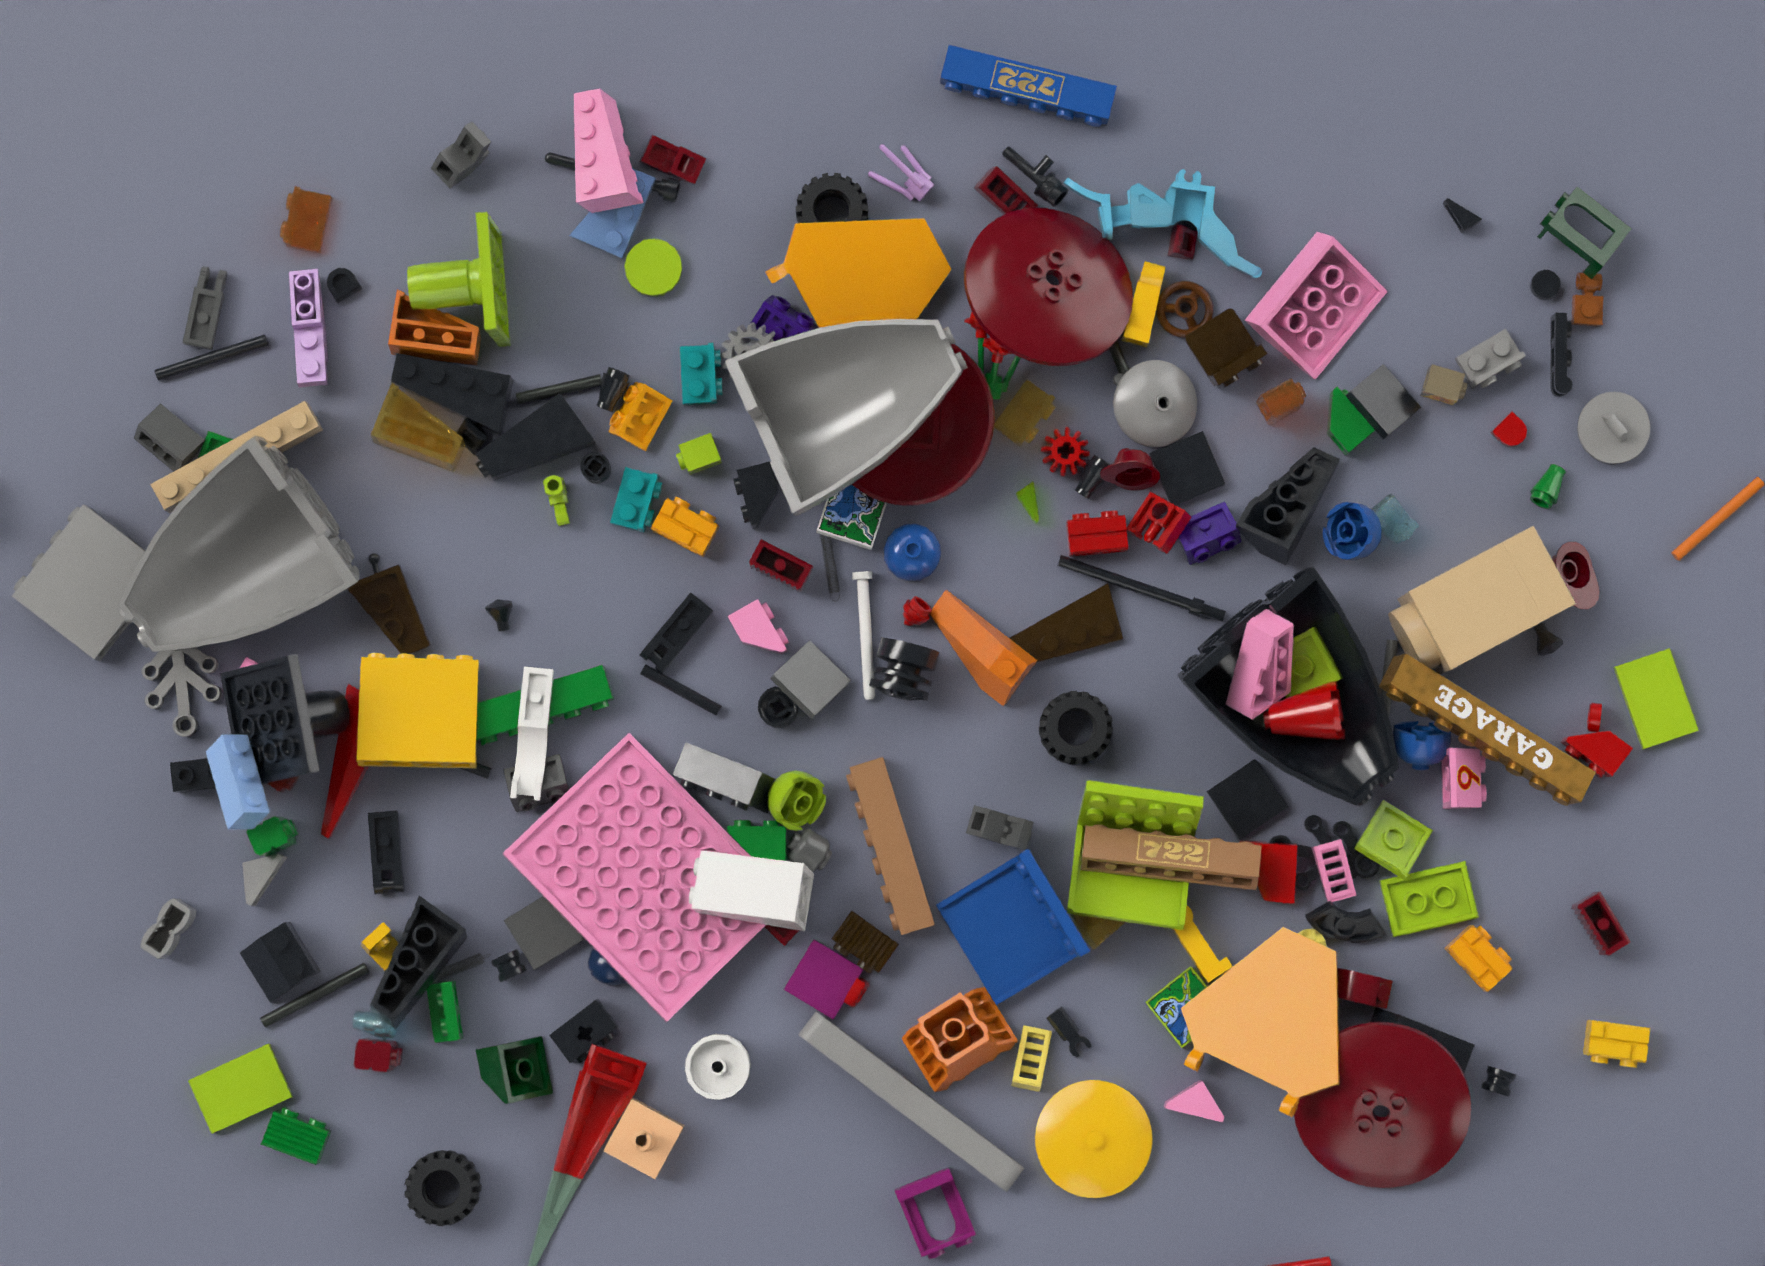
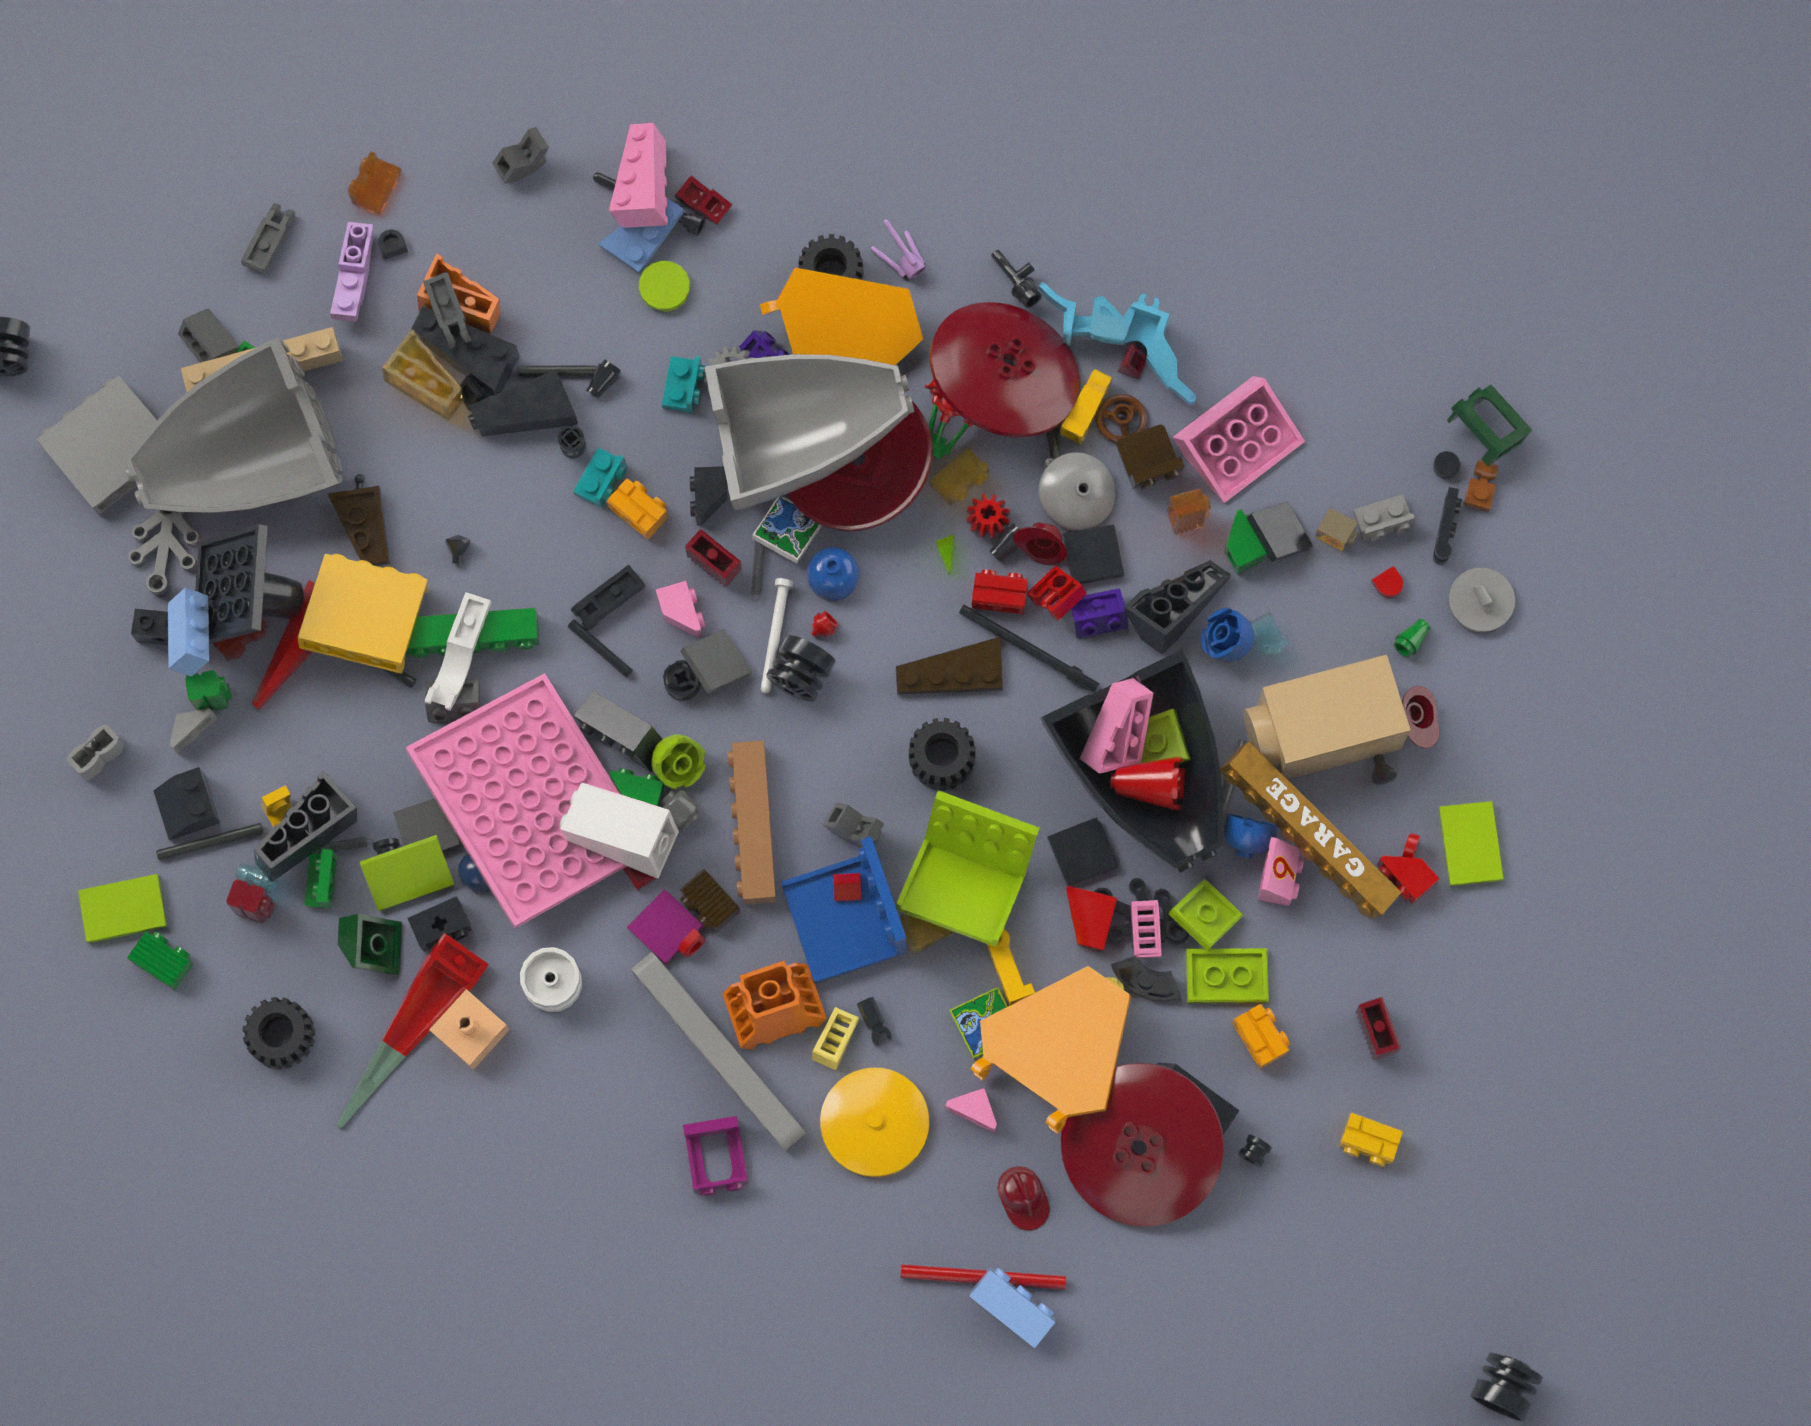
camera: 15 degrees right, 10 degrees down
(211, 357) = (264, 280): black bar -> none
(385, 851) = (304, 729): black plate -> none
(425, 352) = (446, 306): none -> dark grey hinge
(468, 282) = (501, 256): lime piece -> none
(536, 985) = (407, 872): none -> lime tile
(557, 495) = (532, 457): lime bar -> none
(639, 415) = (621, 406): light orange bracket -> none
(698, 454) = (664, 449): lime brick -> none
(985, 651) = (877, 671): orange wedge -> none
(1004, 180) = (988, 278): dark red slope -> none
(1007, 894) = (847, 887): none -> red slope
(1027, 85) = (1026, 201): blue brick -> none
(1171, 857) = (1000, 882): medium nougat brick -> none
(1266, 1183) = (1023, 1198): none -> dark red piece
(1363, 988) = (1148, 1038): dark red brick -> none
(1462, 217) = (1386, 393): black piece -> none
(1718, 518) = (1559, 698): orange bar -> none

